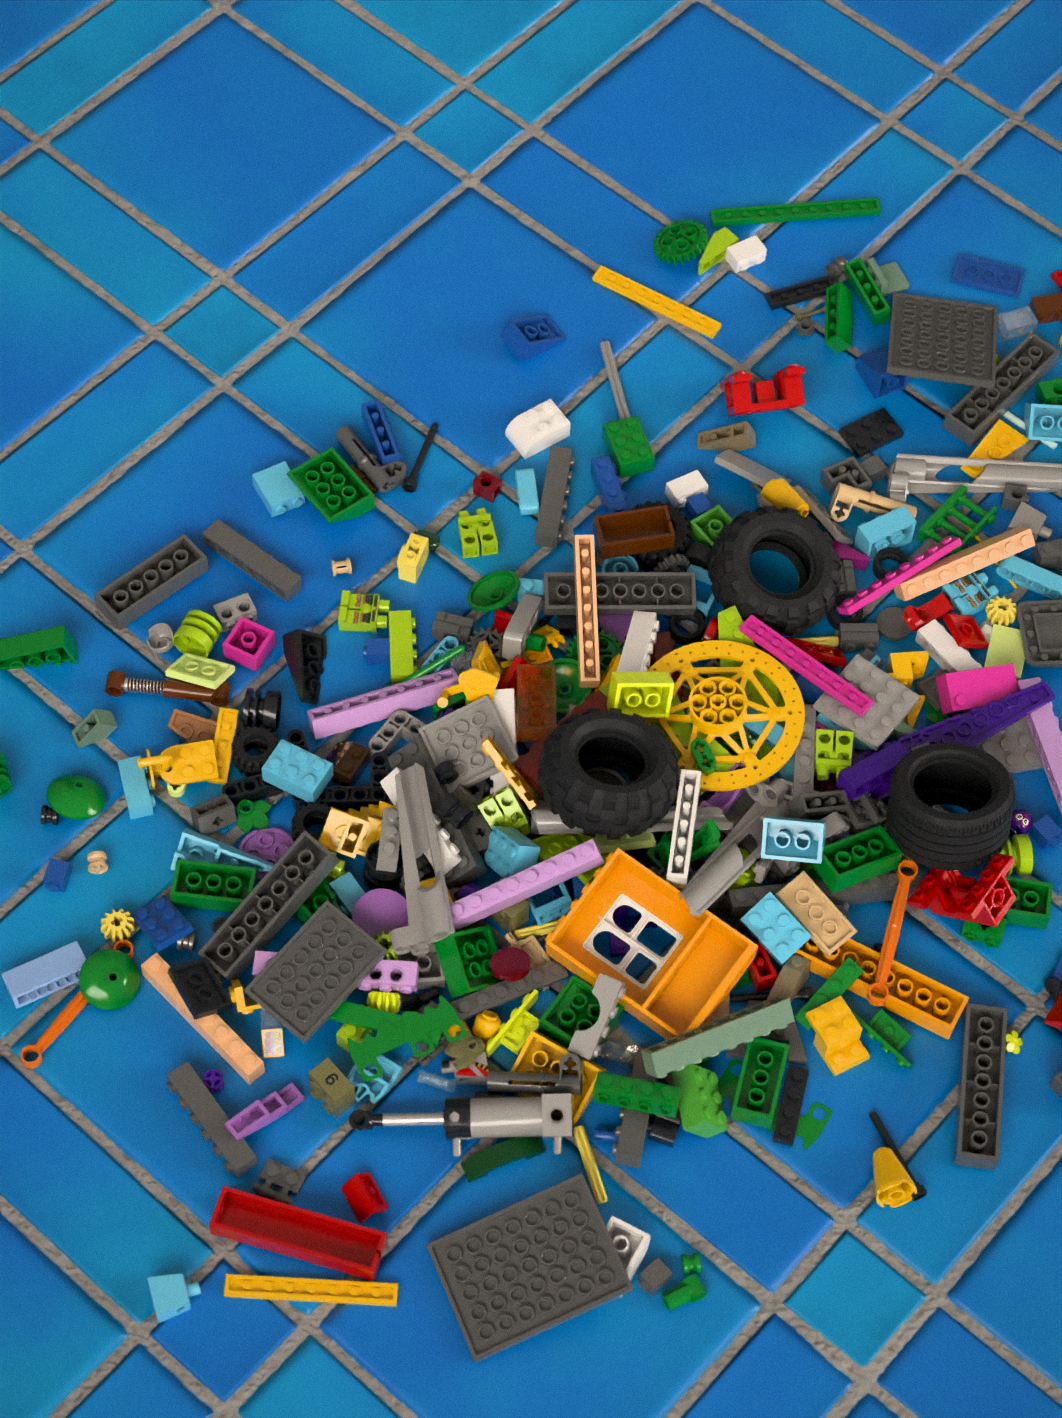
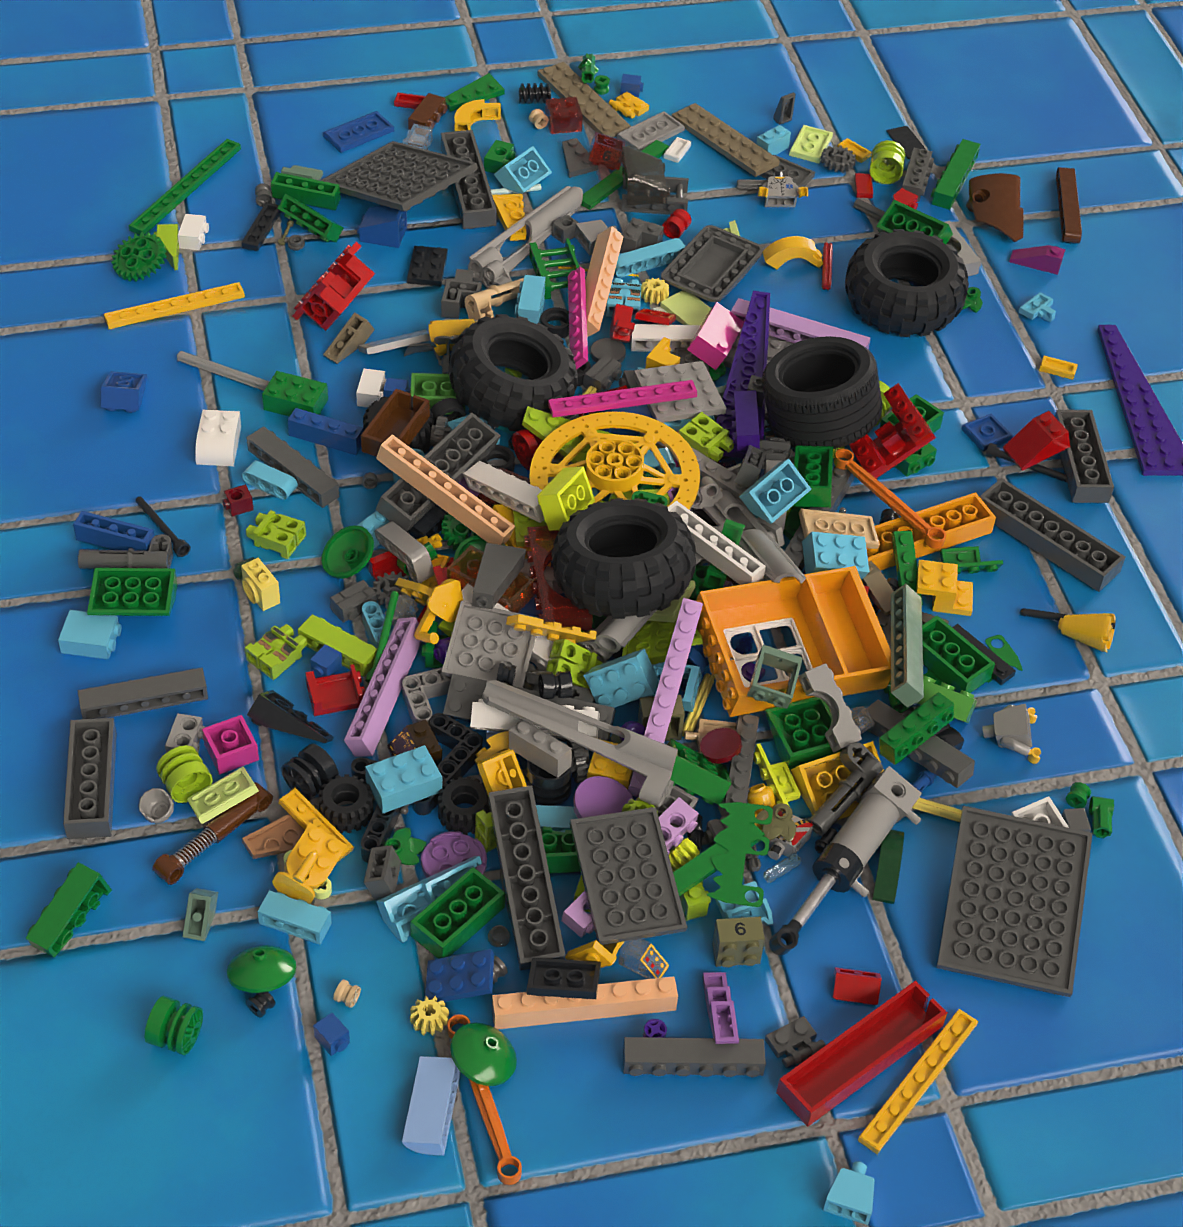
camera: 55 degrees left, 10 degrees down
(334, 564) = (215, 638): tan bush -> none
(355, 673) = (335, 692): none -> red panel
(530, 699) = (496, 573): none -> dark grey slope
(594, 933) = (779, 660): none -> sand green window
(720, 1173) = (1014, 731): none -> light grey torso

